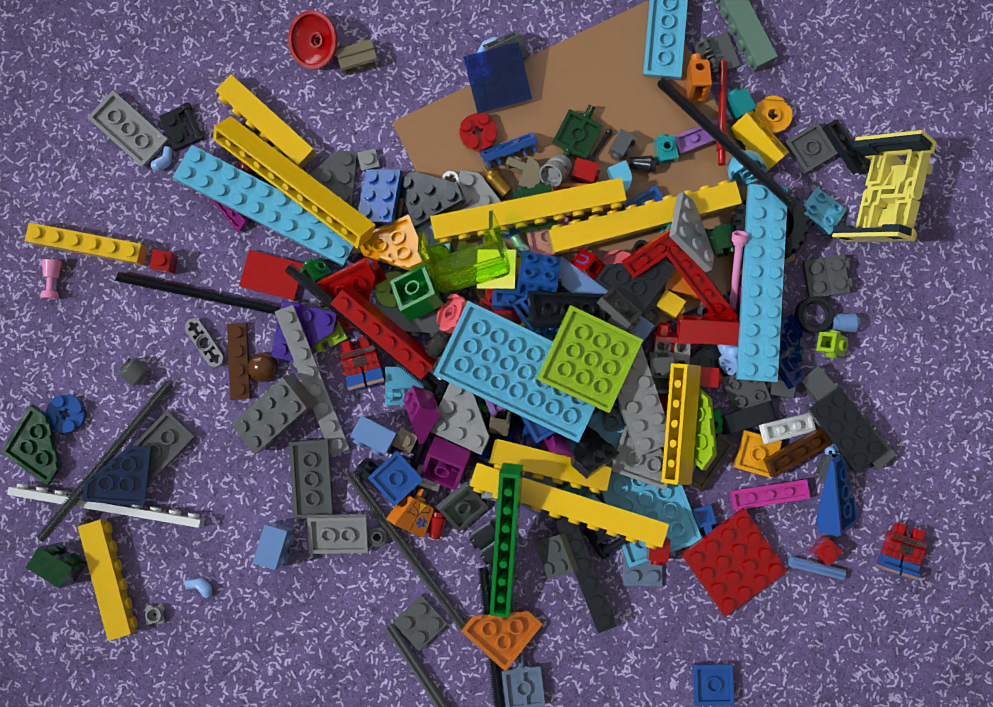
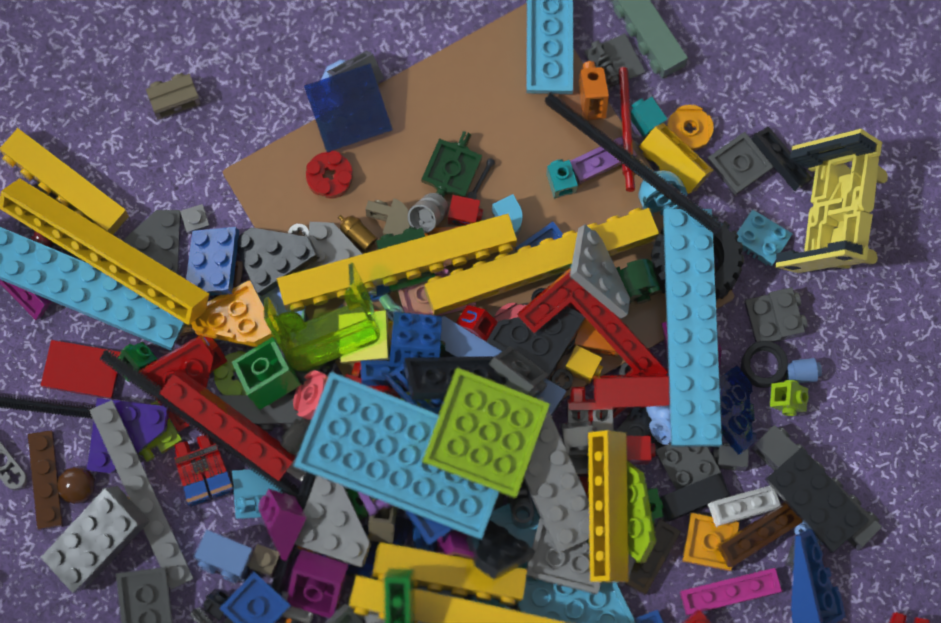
camera: 10 degrees left, 10 degrees down
(304, 39) = (106, 79): red dish -> none
(509, 149) = (368, 192): blue plate -> none
(622, 145) = (507, 177): dark grey brick -> none
(643, 163) = (537, 197): black cone -> none
(739, 239) = (658, 275): bright pink piece -> none

